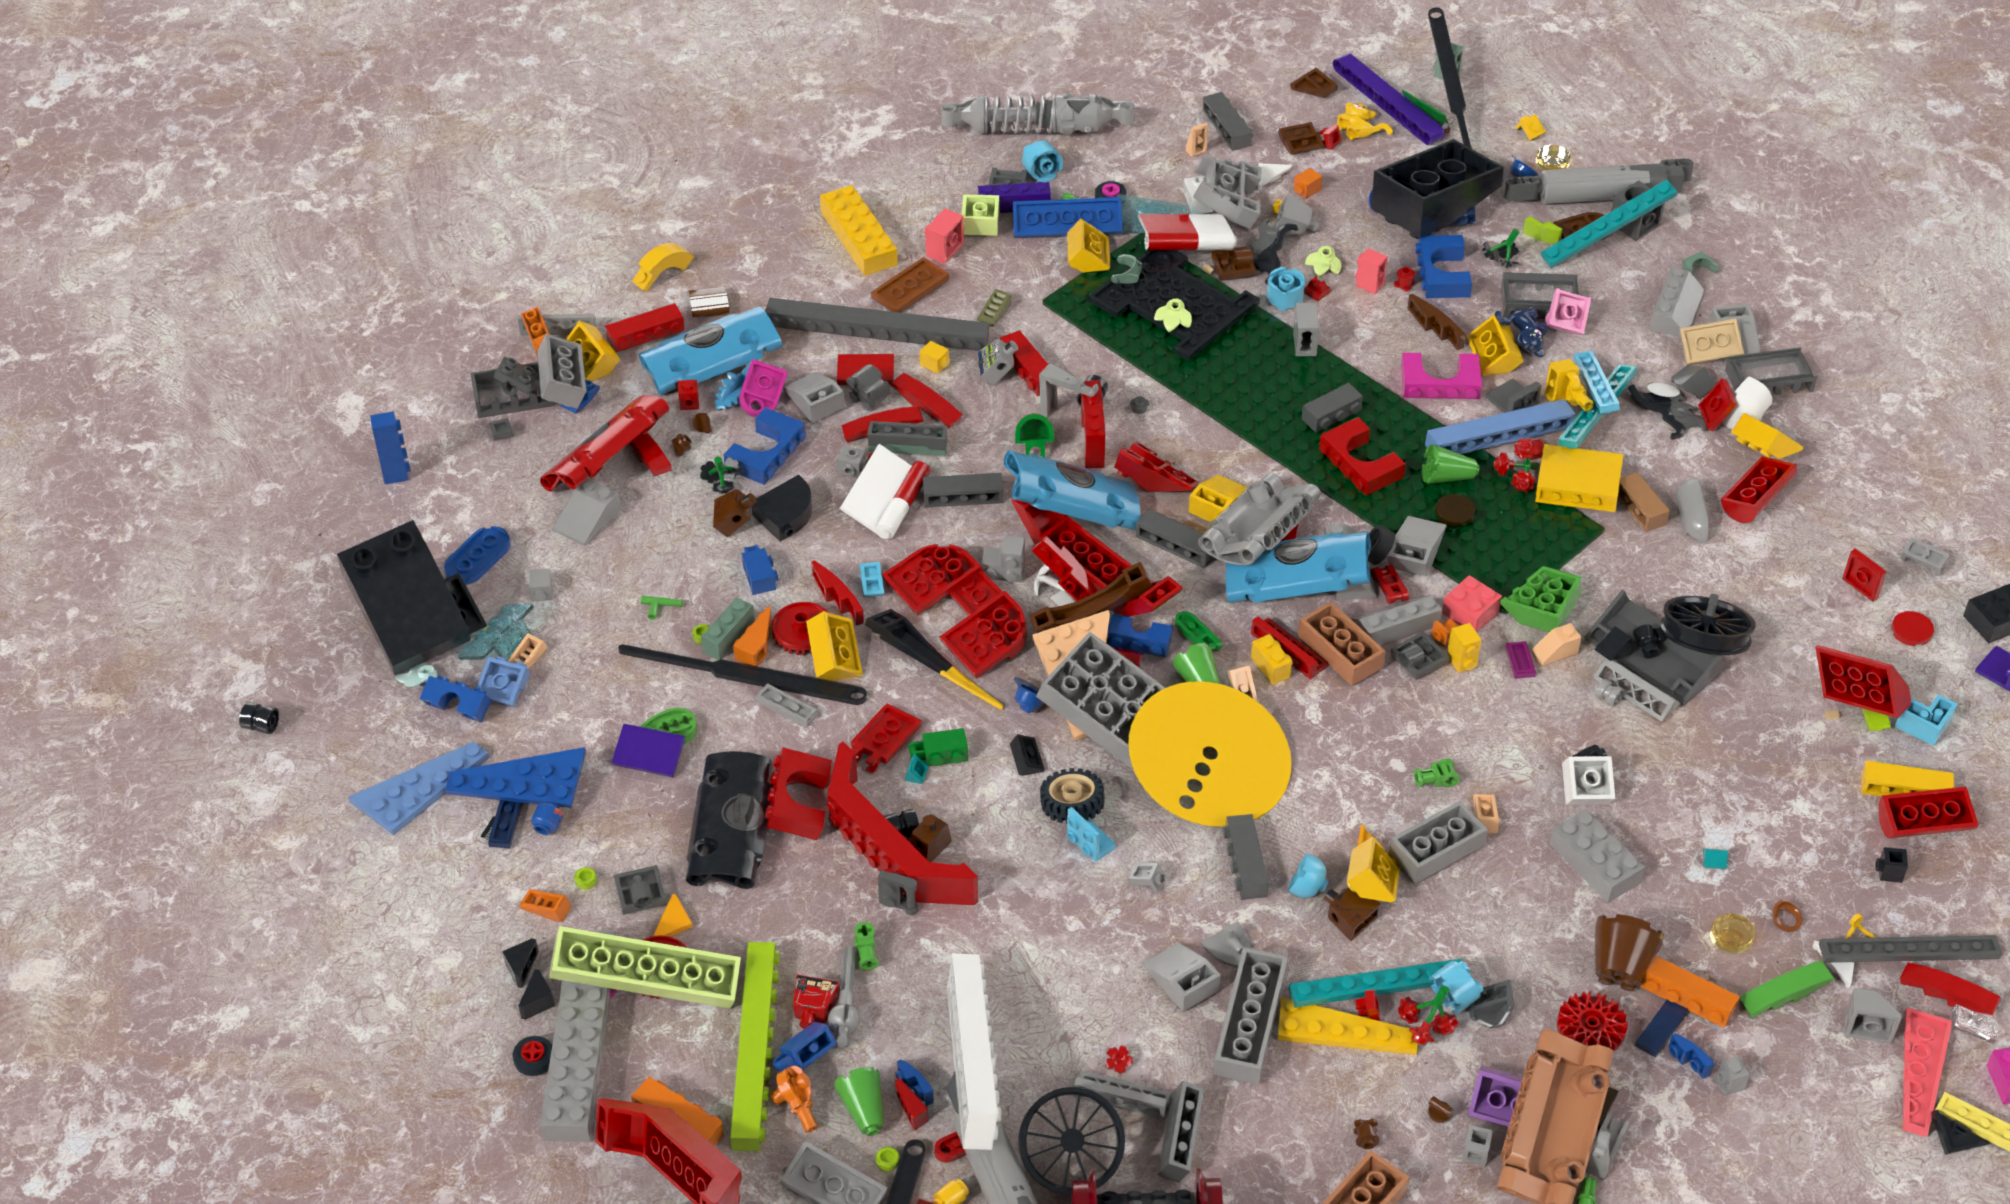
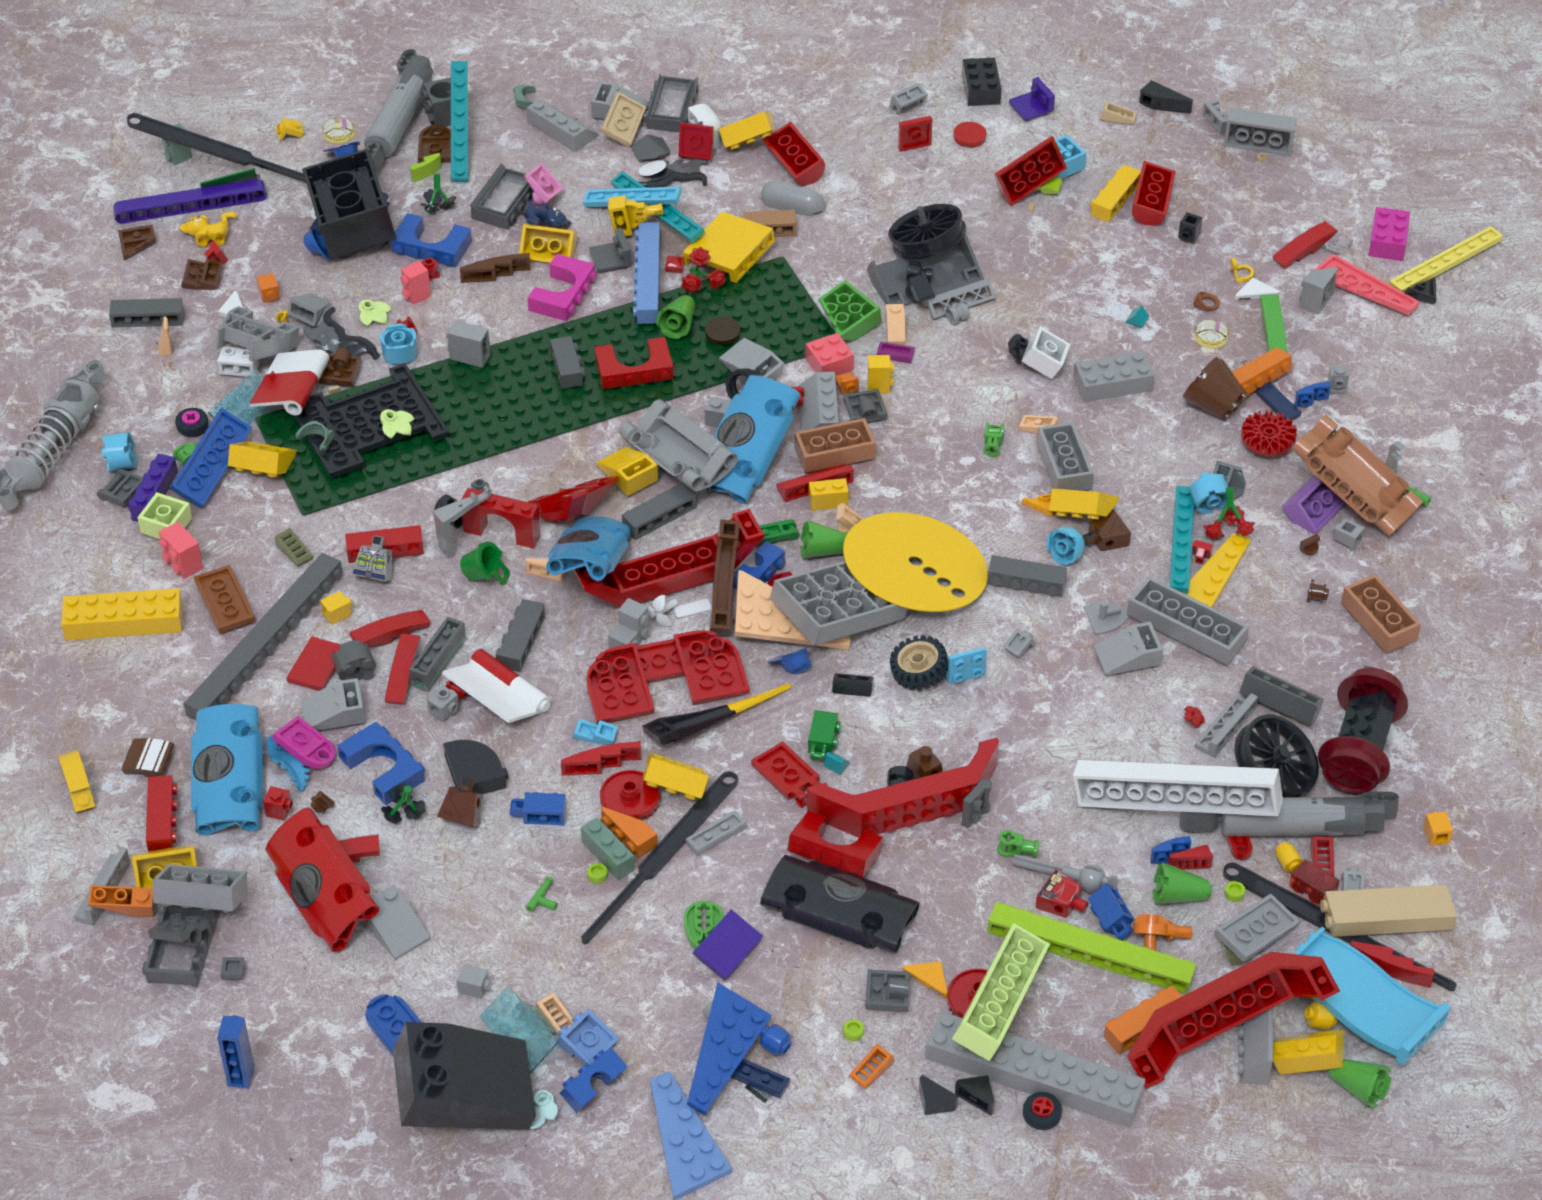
camera: 70 degrees left, 0 degrees up
(681, 444) = (339, 827): reddish brown plate -> none
(1066, 567) = (677, 585): red slope -> none
(1910, 948) = (1264, 249): dark grey plate -> none

